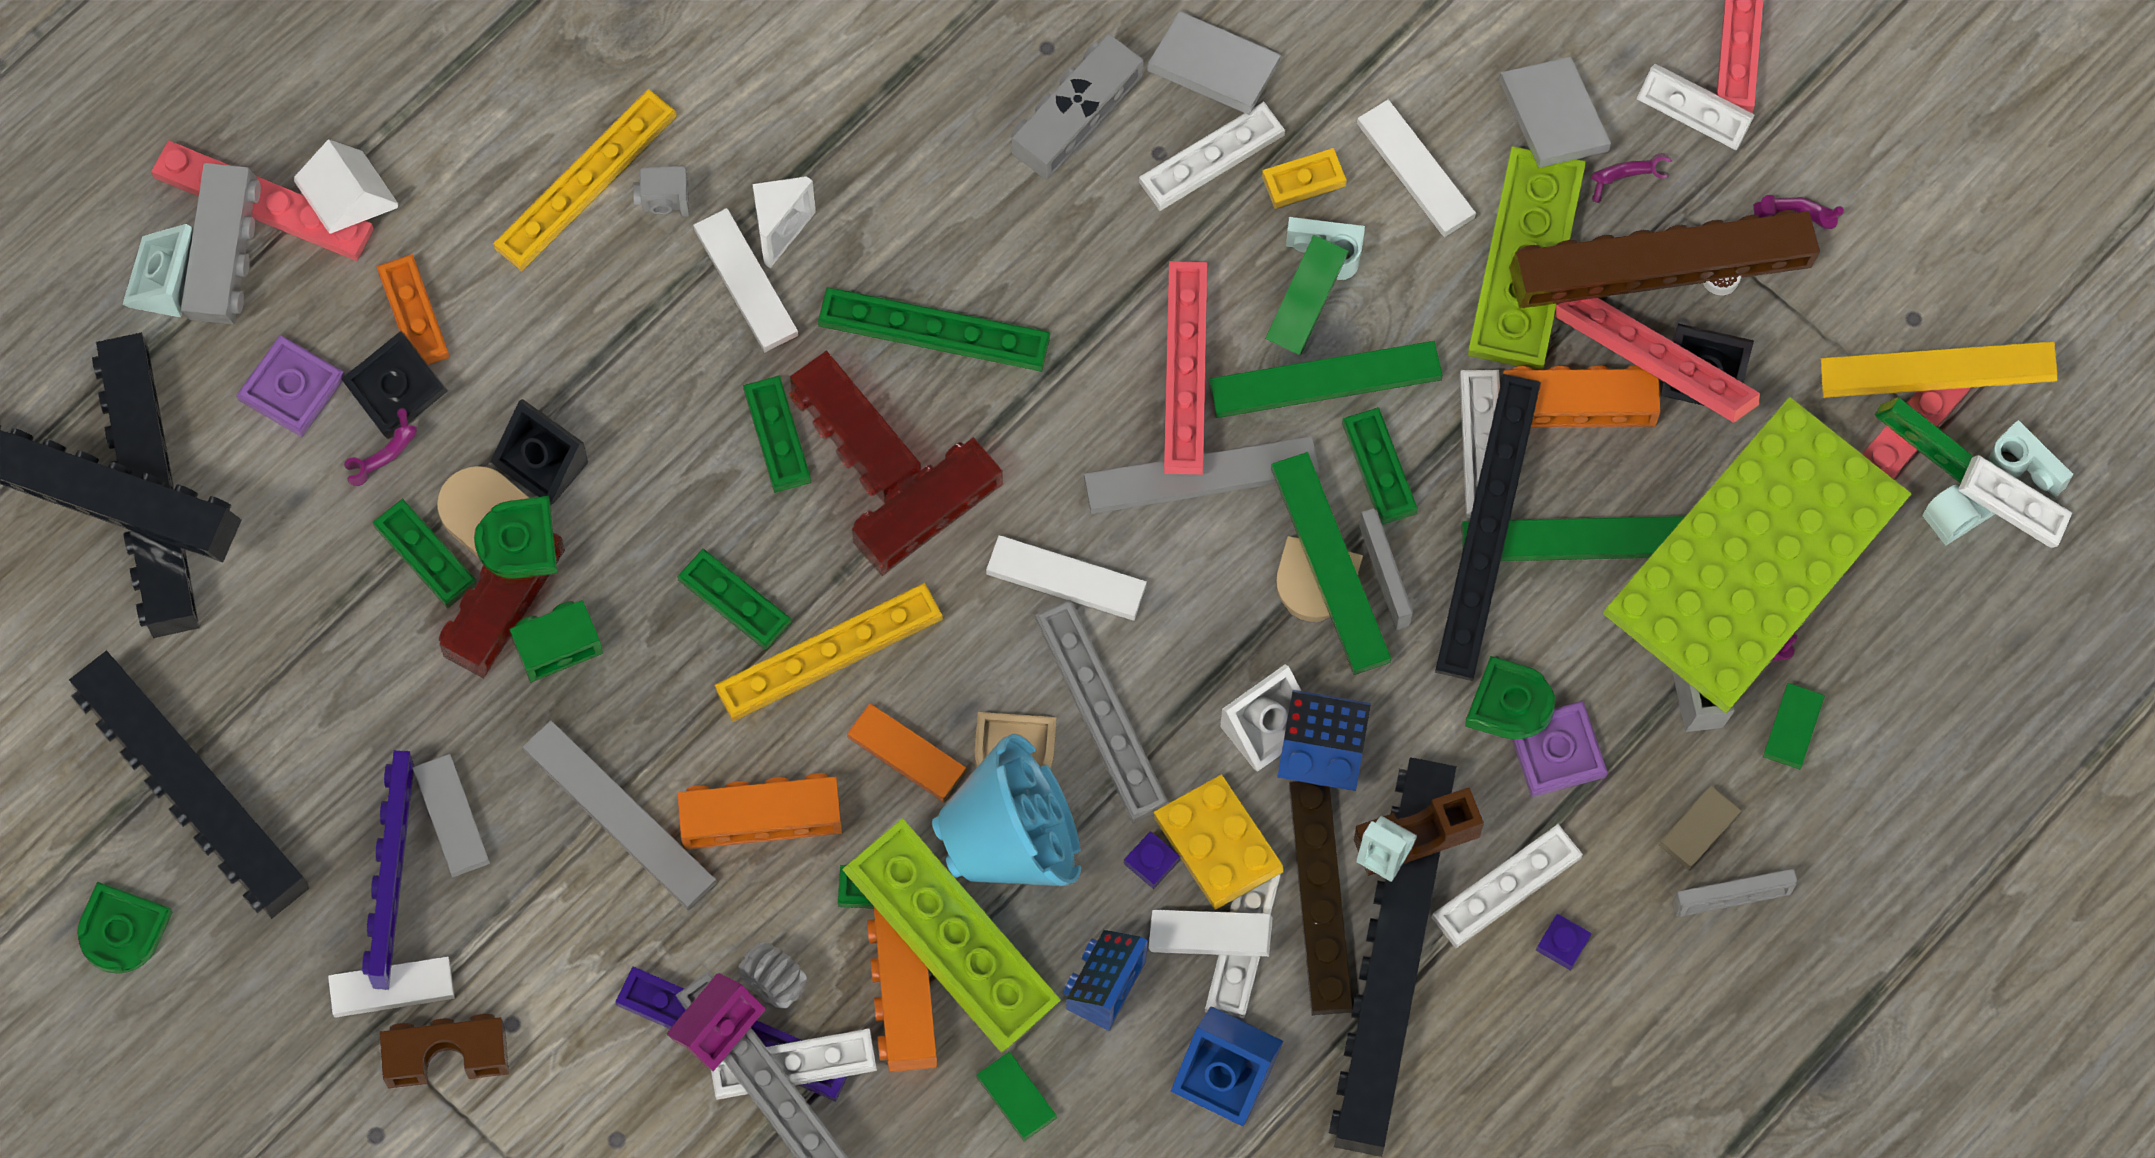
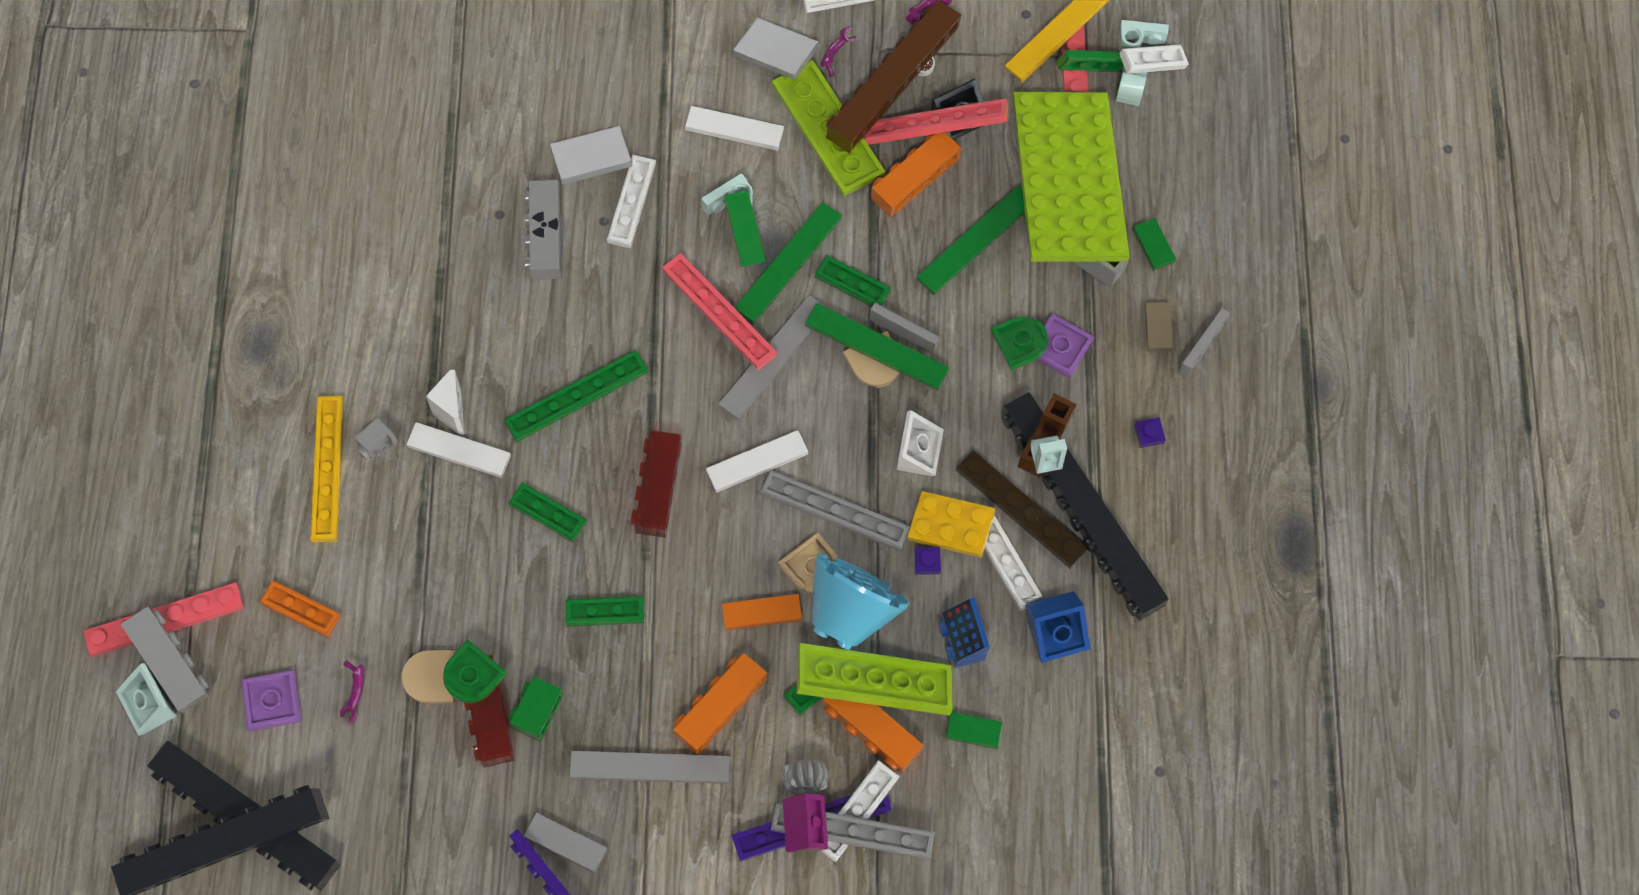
camera: 45 degrees left, 0 degrees up
(343, 187) = (204, 576): white slope -> none
(394, 380) = (325, 651): black tile -> none
(424, 553) = (424, 724): green tile -> none
(539, 453) = (437, 623): black slope -> none
(828, 652) = (676, 597): yellow tile -> none
(853, 426) = (584, 475): clear red brick -> none
(1210, 933) = (990, 569): white tile -> none
(1304, 178) = (687, 175): yellow plate -> none
(1324, 740) = (957, 432): slope -> none
(1478, 402) = (890, 232): white tile -> none
(1488, 527) = (933, 268): black tile -> none
(1506, 886) = (1099, 429): white tile -> none

